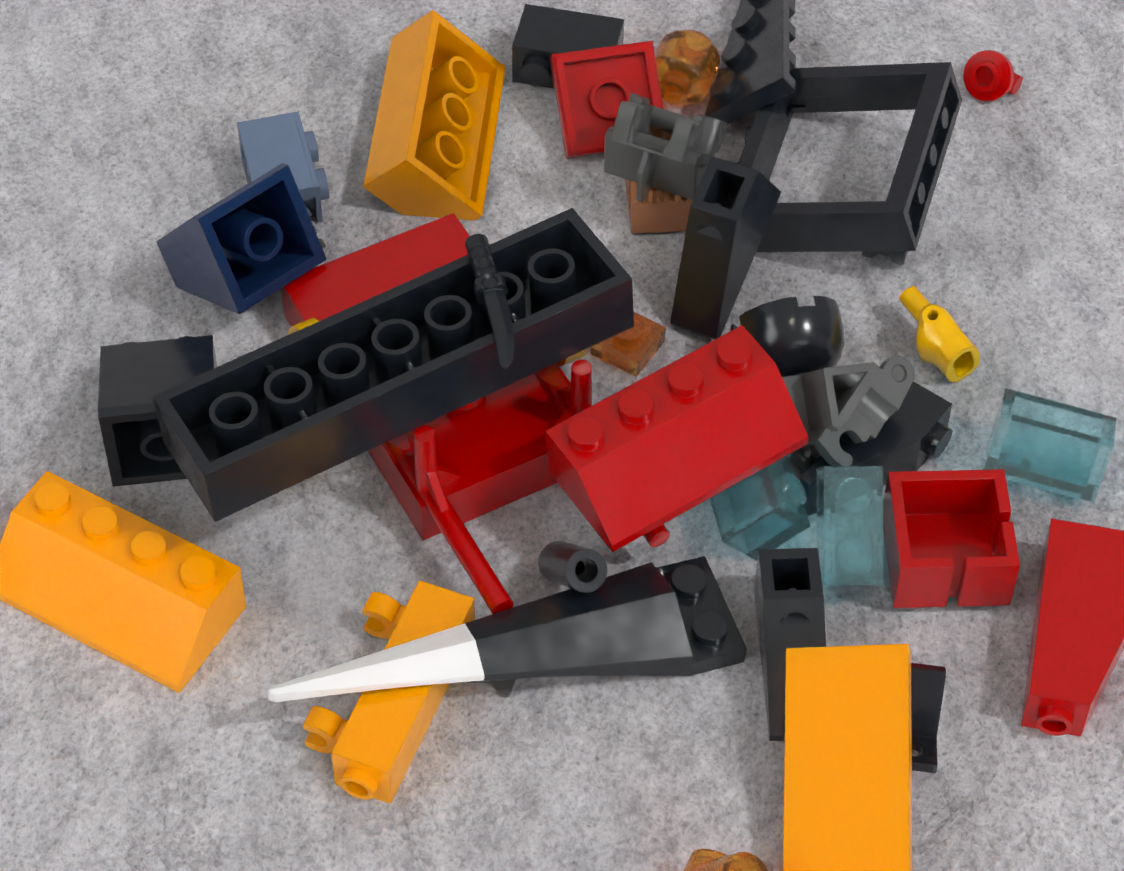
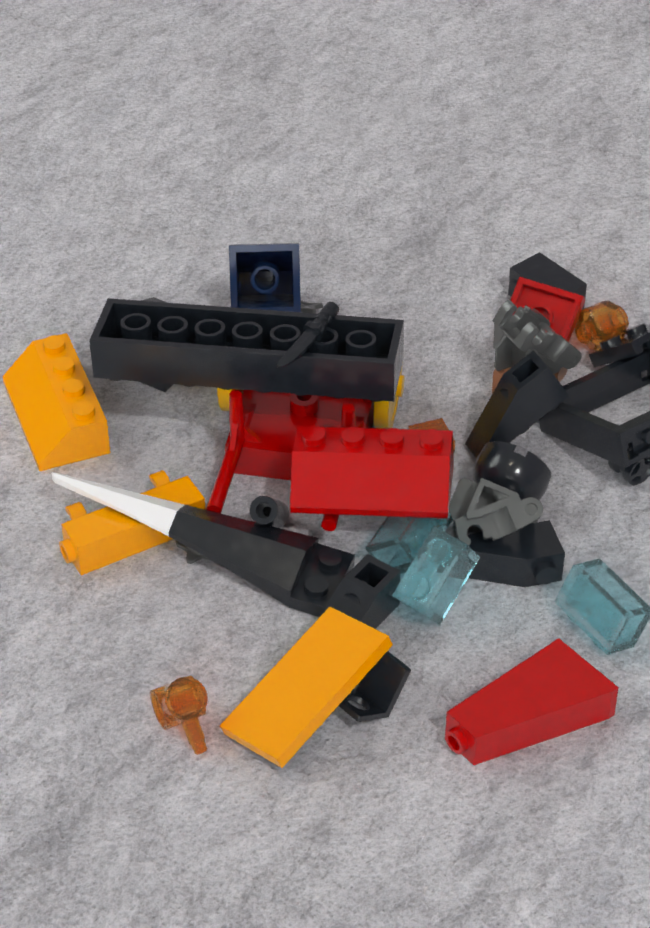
camera: 40 degrees right, 10 degrees down
(281, 140) = (332, 270): sand blue hinge -> none
(435, 122) = (439, 287): light orange slope -> none
(940, 337) = (604, 526): yellow piece -> none
(944, 537) = (490, 616): red piece -> none

